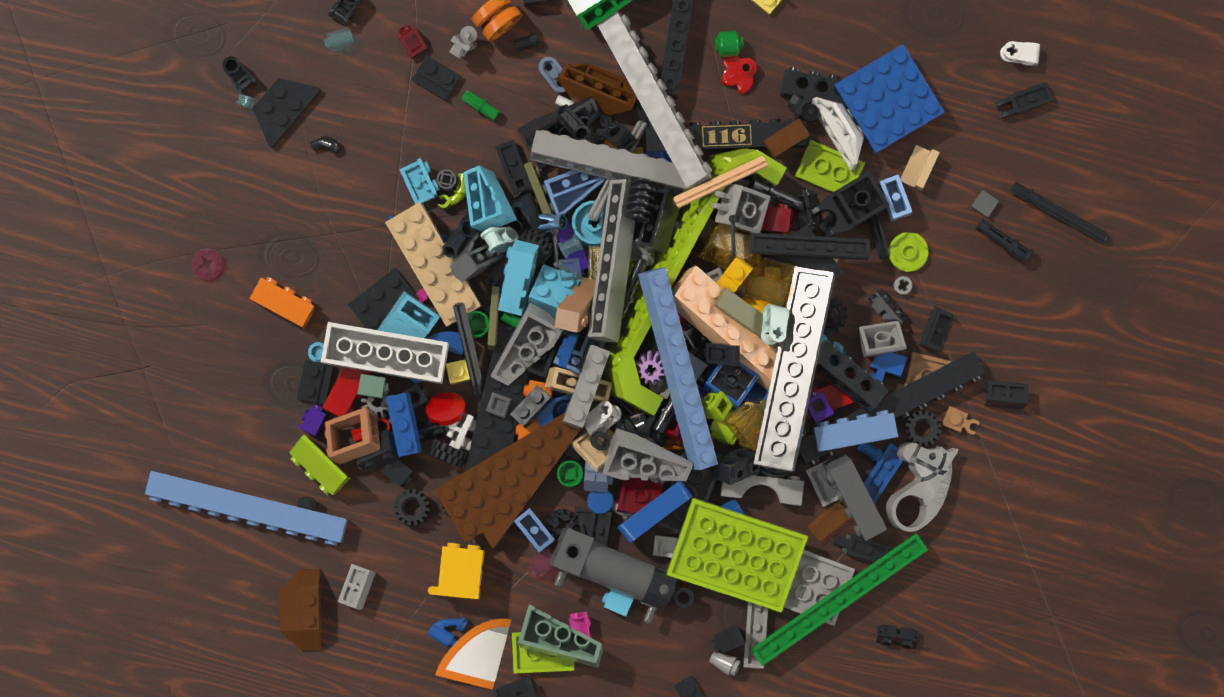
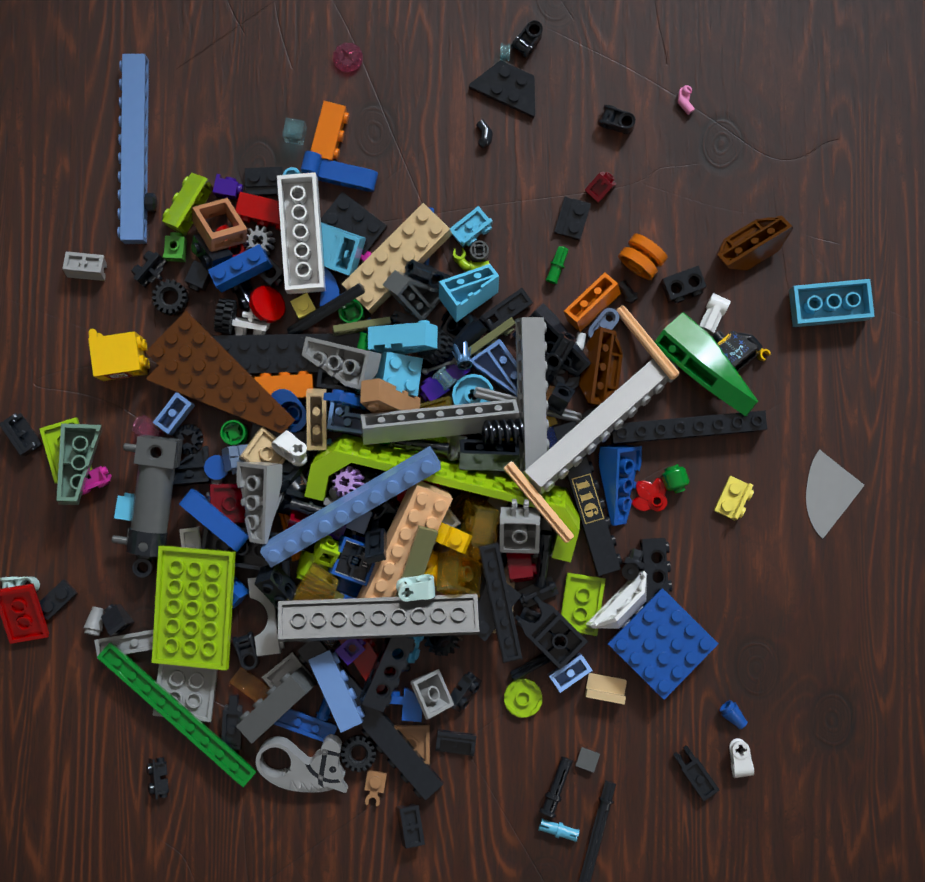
camera: 75 degrees right, 0 degrees up
(272, 337) = (294, 131): none -> clear light blue brick
(302, 609) = (53, 223): reddish brown wedge -> none
(328, 302) = (339, 173): none -> blue beam
(338, 39) = (584, 120): clear light blue brick -> none
(368, 493) = (175, 254): none -> bright green brick
(373, 386) = (268, 231): sand green brick -> none
(379, 519) = (150, 270): none -> black hips
(441, 635) = (59, 355): blue plant -> none
(464, 41) = (611, 233): light grey hips -> none
(476, 654) = (49, 391): sticker -> none
(498, 405) = (280, 350): dark grey tile -> none
(499, 238) = (435, 311): light aqua piece -> none
(529, 79) = (592, 302): none -> orange brick
(531, 406) = (286, 381): plate -> none
(569, 269) = (423, 383): clear light blue tile -> none
(585, 35) = (647, 342): none -> light nougat axle
(586, 387) = (314, 425): light grey arch -> none
(593, 440) = (270, 446): black bush -> none
(706, 99) = (618, 471): none -> blue wedge
(732, 218) = (505, 522): black hinge -> none
(786, 138) = (599, 555): reddish brown slope -> none
(791, 515) = (246, 649): none -> black piece
(908, 287) = (490, 706): light grey bush -> none
(976, 48) = (732, 713): none -> blue cone
(1046, 249) = (559, 830): none -> medium azure pin

